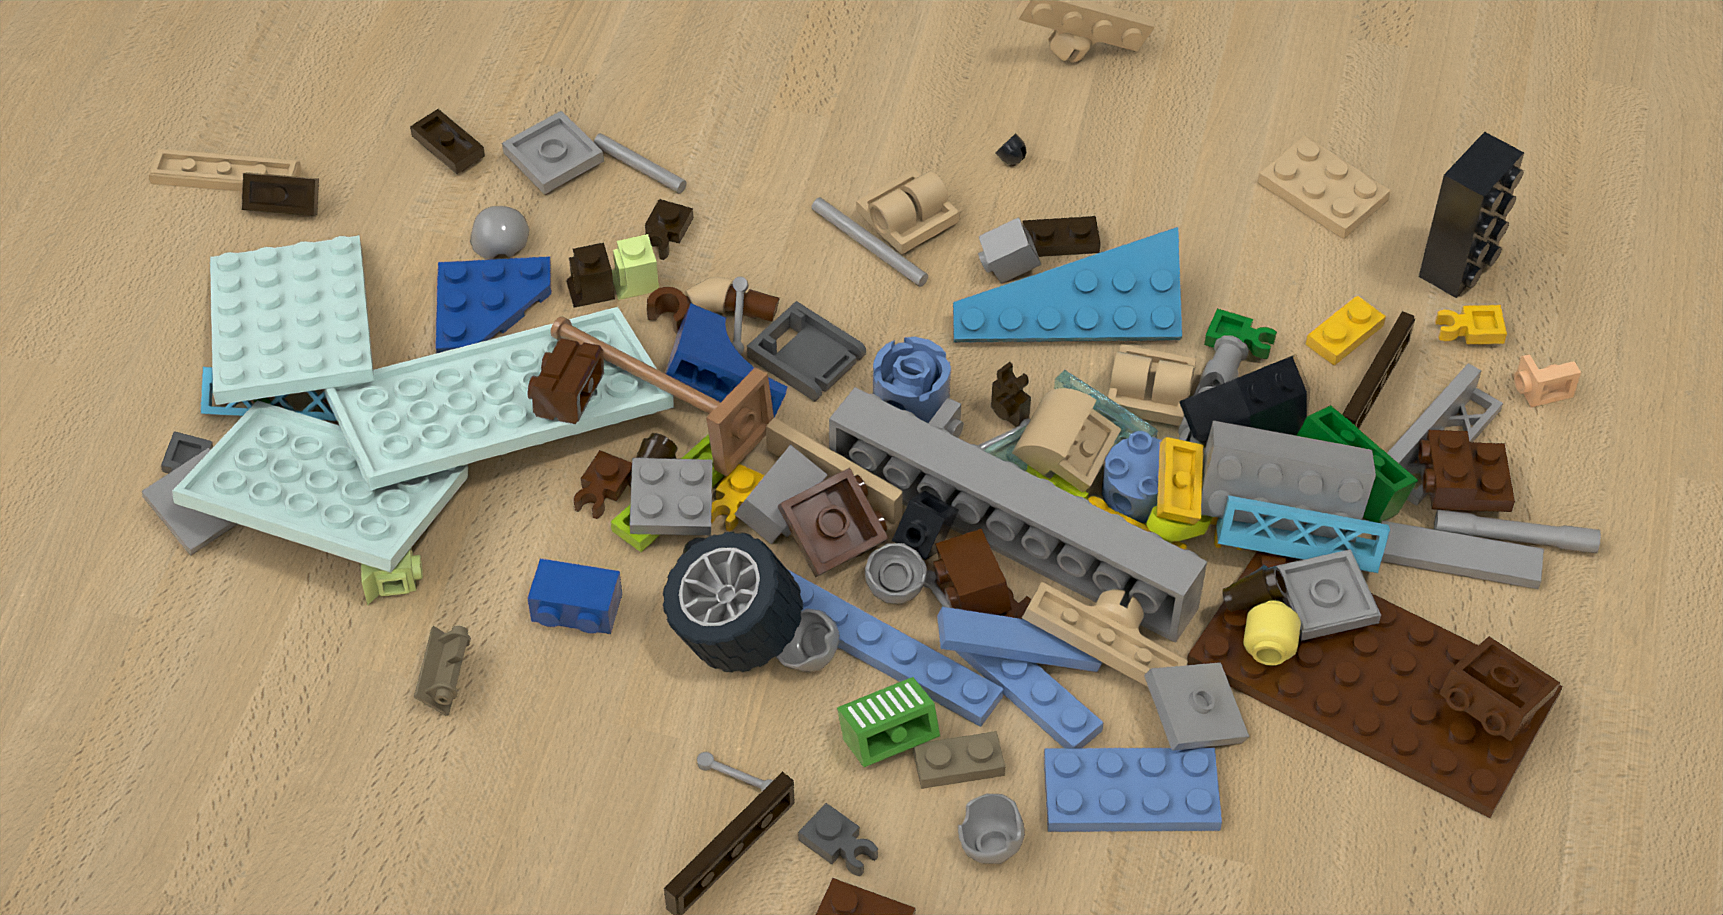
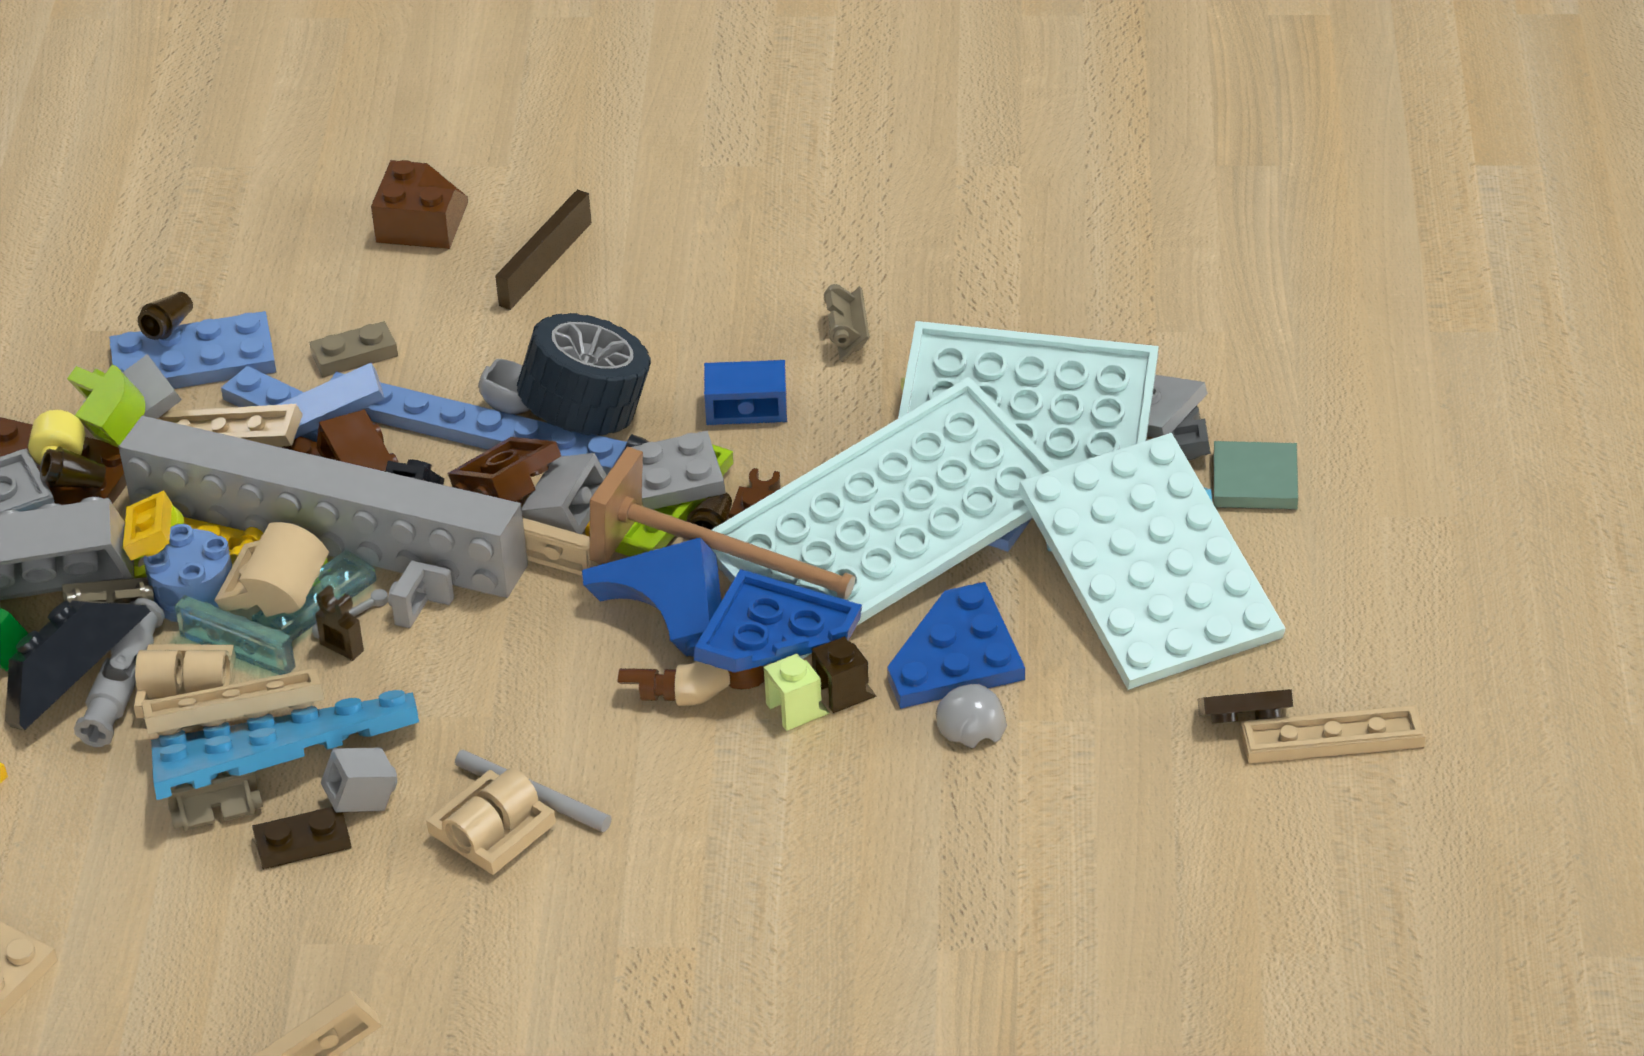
camera: 170 degrees right, 10 degrees down
(144, 418) = (1255, 475): none -> sand green tile
(447, 141) = (1081, 805): dark brown plate -> none
(553, 152) = (946, 815): light grey plate -> none
(566, 380) = (808, 502): reddish brown brick -> none
(637, 298) = (770, 621): none -> blue plate
(640, 163) = (838, 833): light grey bar -> none
(666, 224) = (779, 765): dark brown plate -> none
(706, 762) = (523, 303): light grey hinge -> none
(740, 285) = (657, 651): light grey hinge -> none
(812, 358) = (572, 652): dark grey container -> none
(834, 836) = (456, 282): dark grey plate -> none
(888, 721) = (420, 342): bright green brick -> none
(895, 573) = (438, 445): light grey hair -> none
(912, 376) = (449, 618): medium blue brick -> none
(991, 829) = (314, 289): light grey hair -> none
(1012, 151) = (376, 918): black hinge -> none
(1110, 325) = (246, 699): none -> tan plate
(1159, 796) = (163, 316): none -> dark brown cone
(1216, 665) = (110, 405): none -> lime brick
(1239, 326) = (89, 752): green plate -> none

